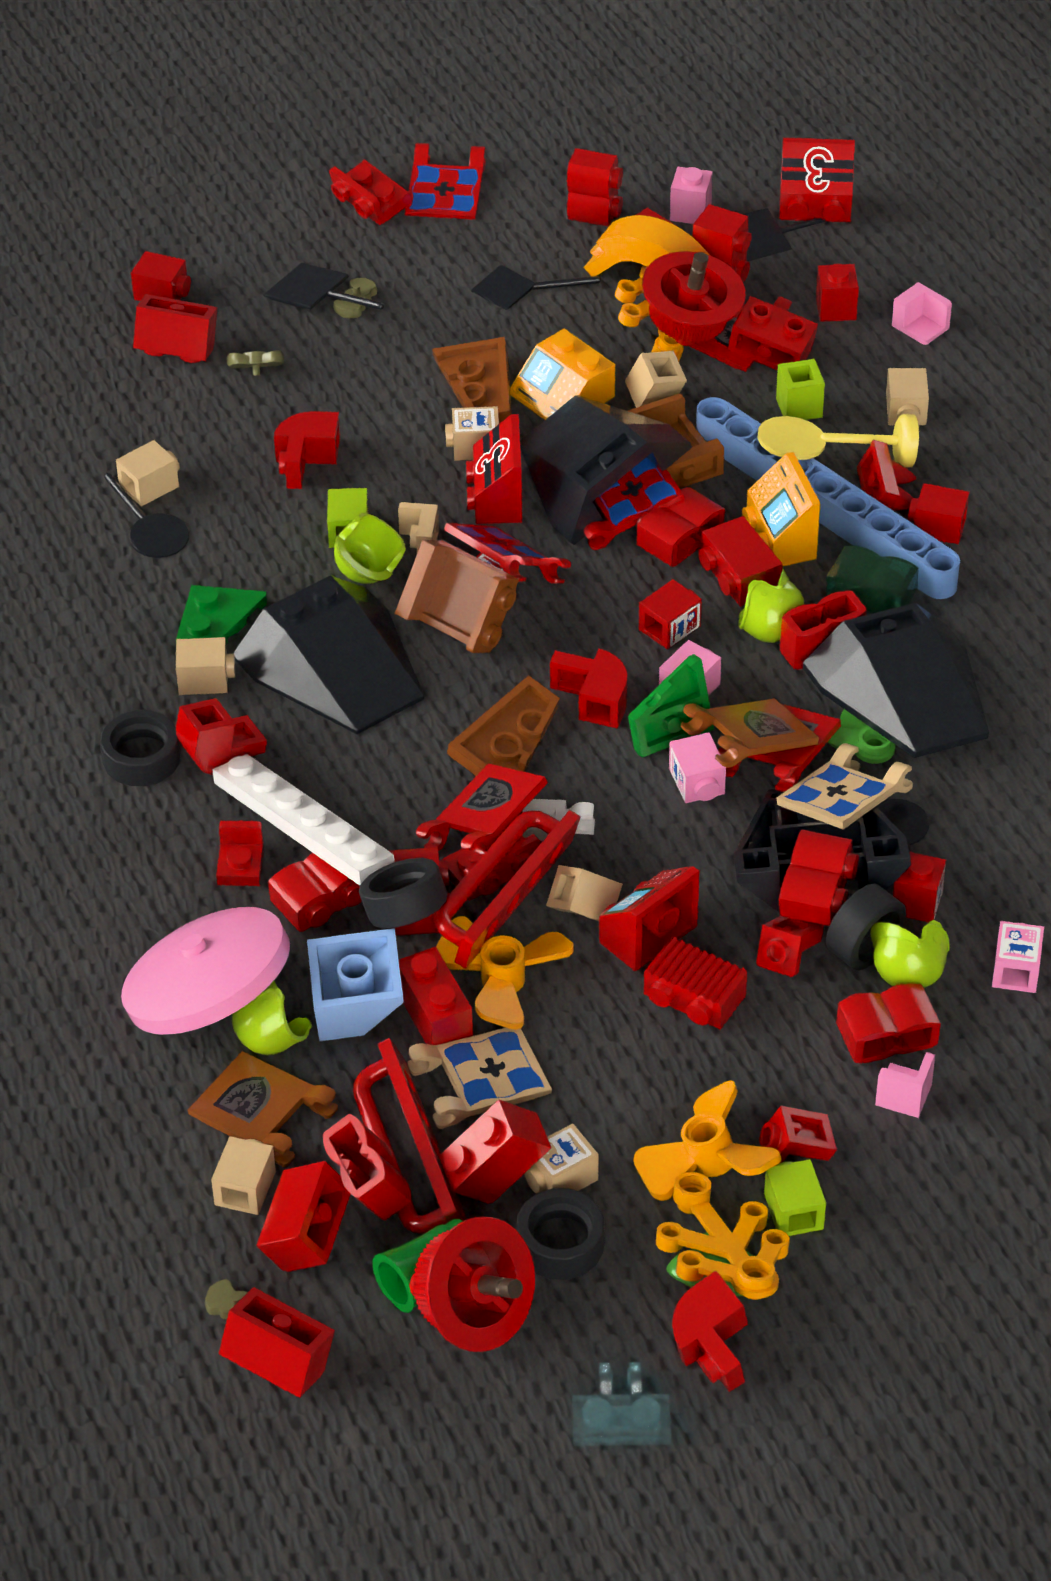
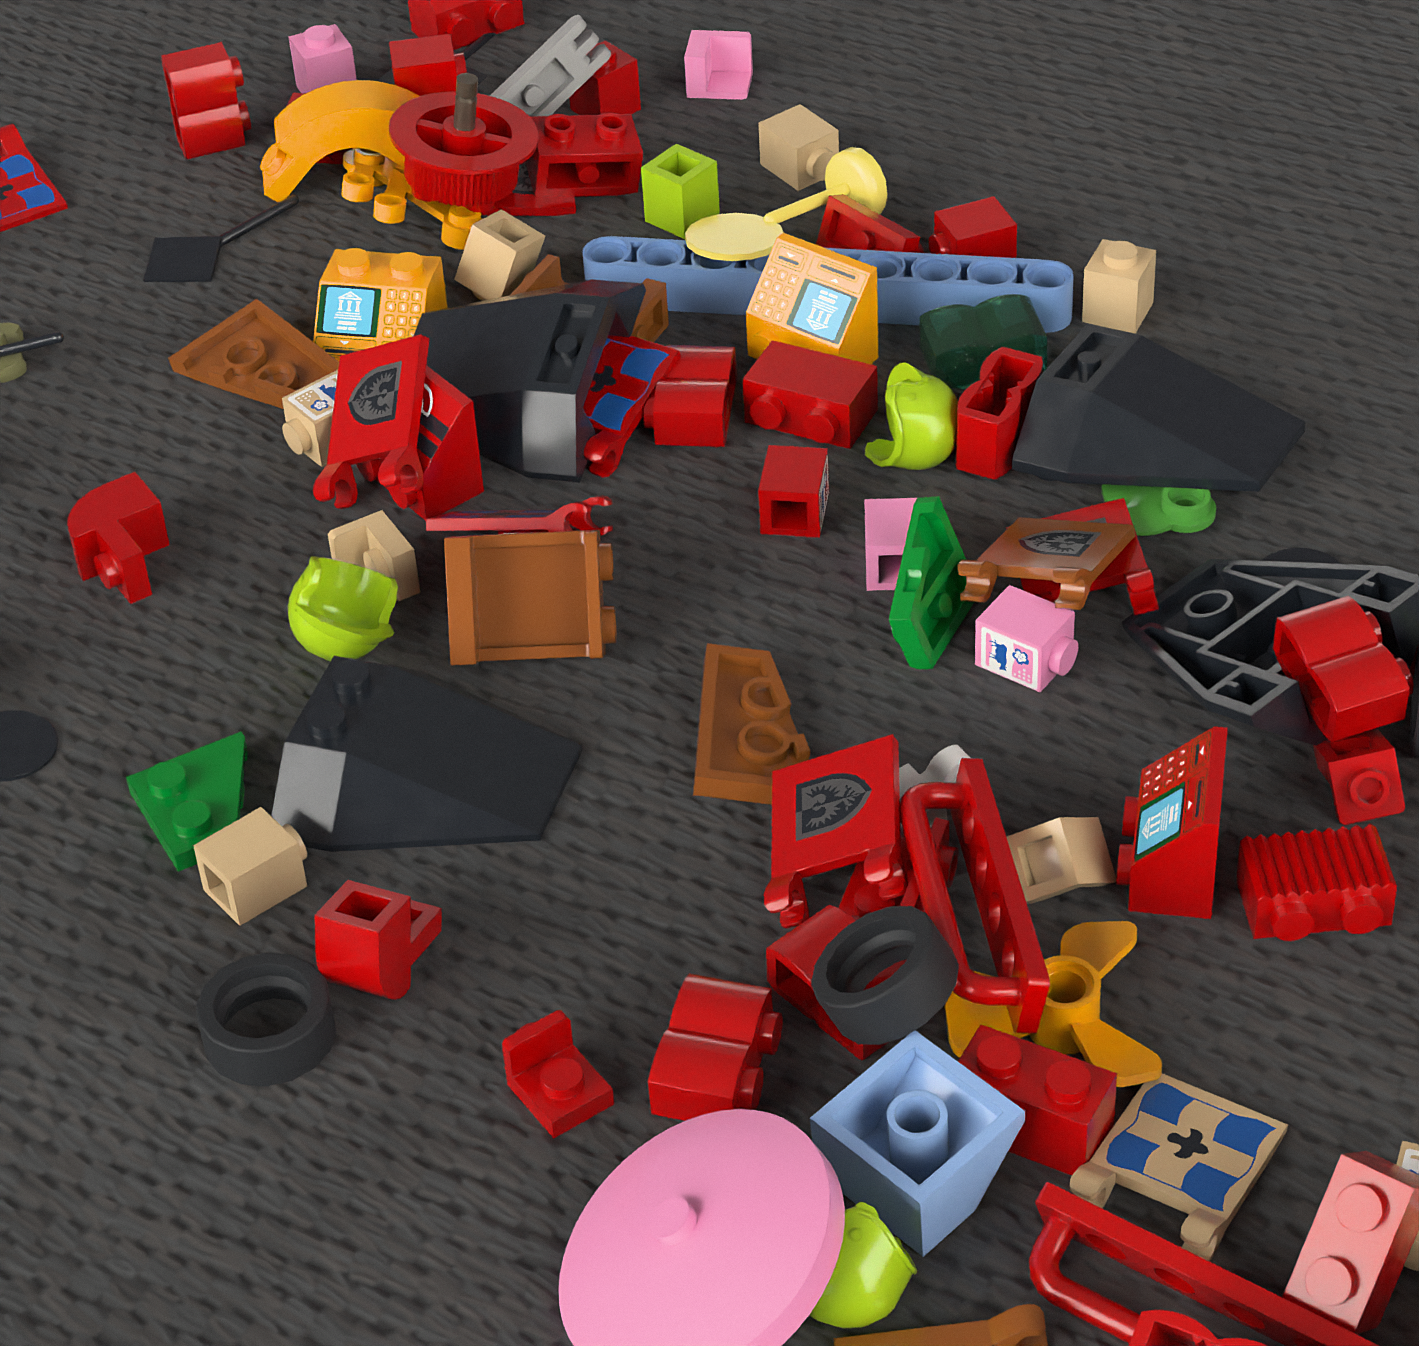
camera: 35 degrees left, 5 degrees down
(302, 818) = (615, 972): white plate -> none
(343, 508) = (258, 587): lime brick -> none
(477, 450) = (376, 418): none -> red flag
(598, 683) = (796, 604): red brick -> none
(788, 274) = (555, 70): none -> light grey hinge
(840, 792) = (1226, 572): tan flag -> none
(986, 589) = (1118, 285): none -> tan brick

